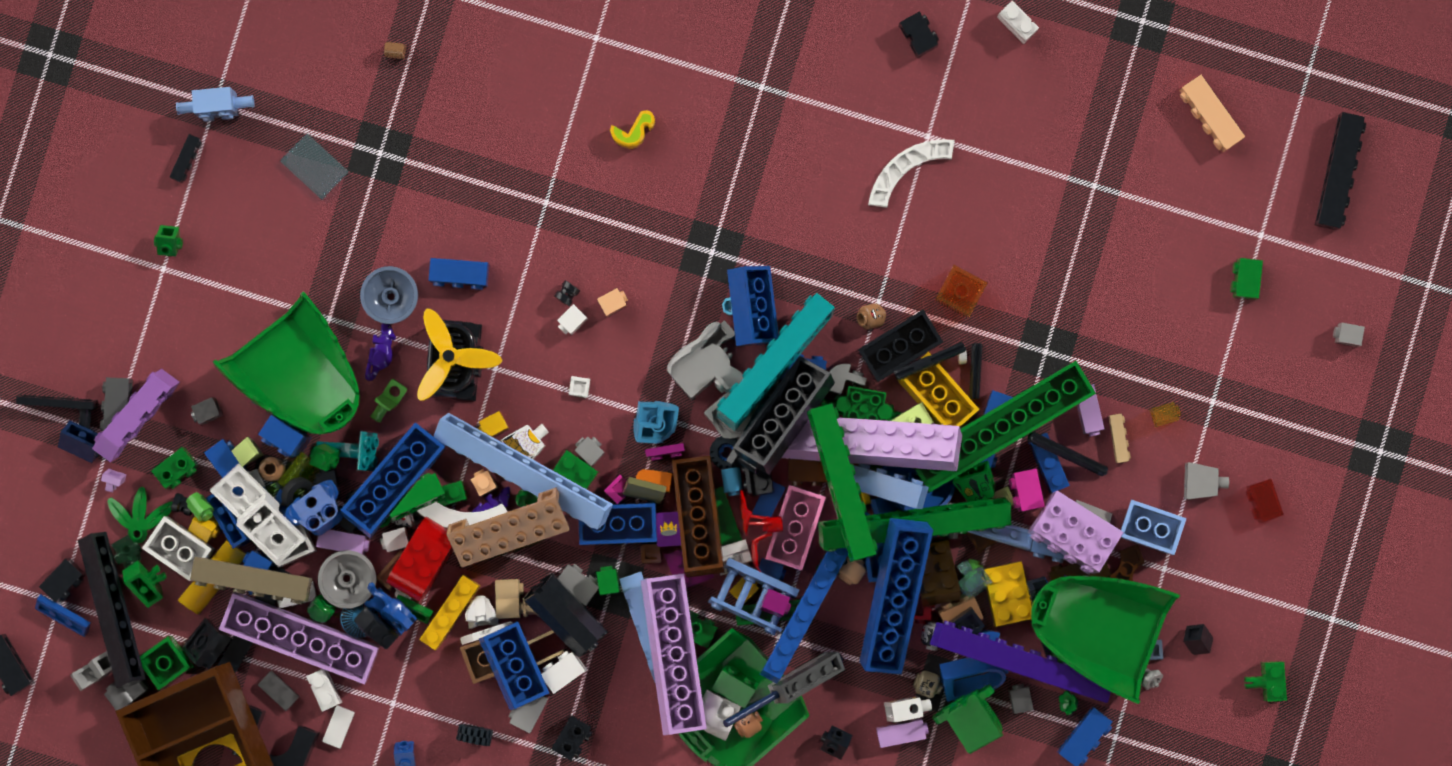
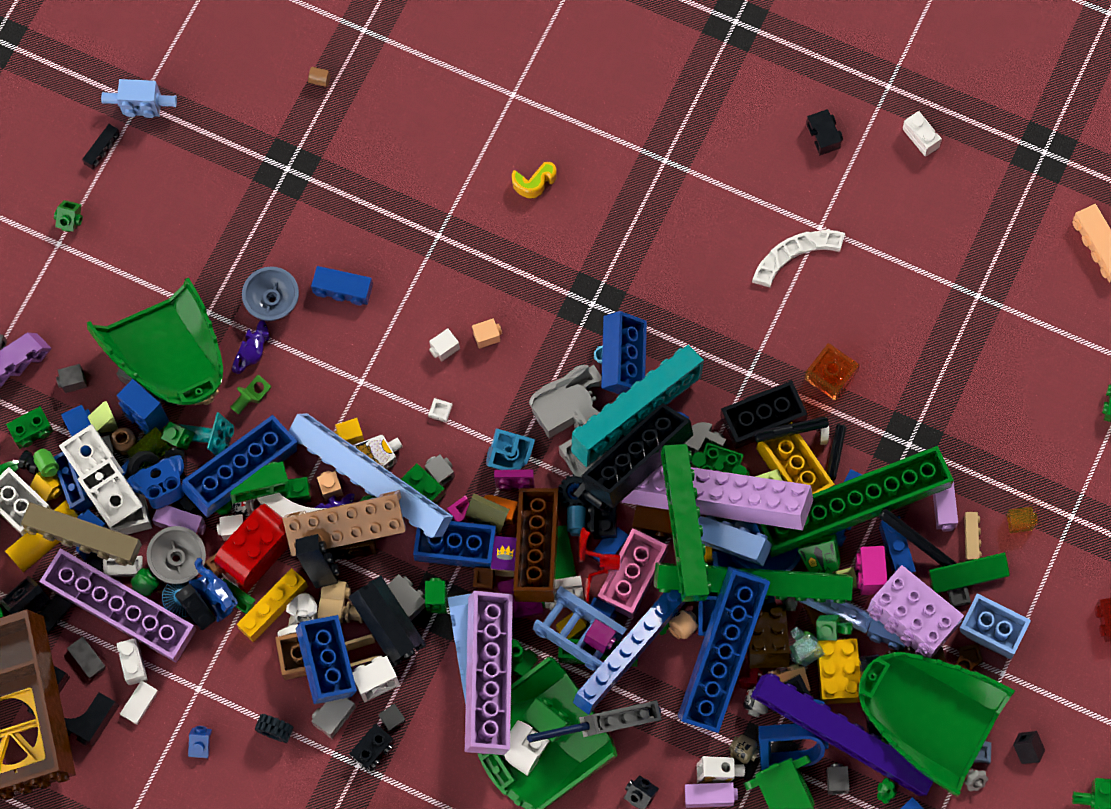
camera: 10 degrees right, 15 degrees down
(314, 166) = (222, 171): clear light blue piece -> none
(454, 359) = (320, 360): brick -> none
(487, 569) = (317, 561): none -> black brick
(570, 290) = (443, 319): black wheel -> none
(585, 703) = (392, 717): none -> dark grey tile
(749, 725) = (553, 759): nougat head -> none
(871, 316) = (739, 383): medium nougat head -> none
(994, 553) = (830, 627): none -> green brick
(1113, 499) = (959, 597): none -> dark grey tile
(1120, 476) = (969, 573): none -> green slope
(1202, 481) = (1052, 590): light grey torso -> none

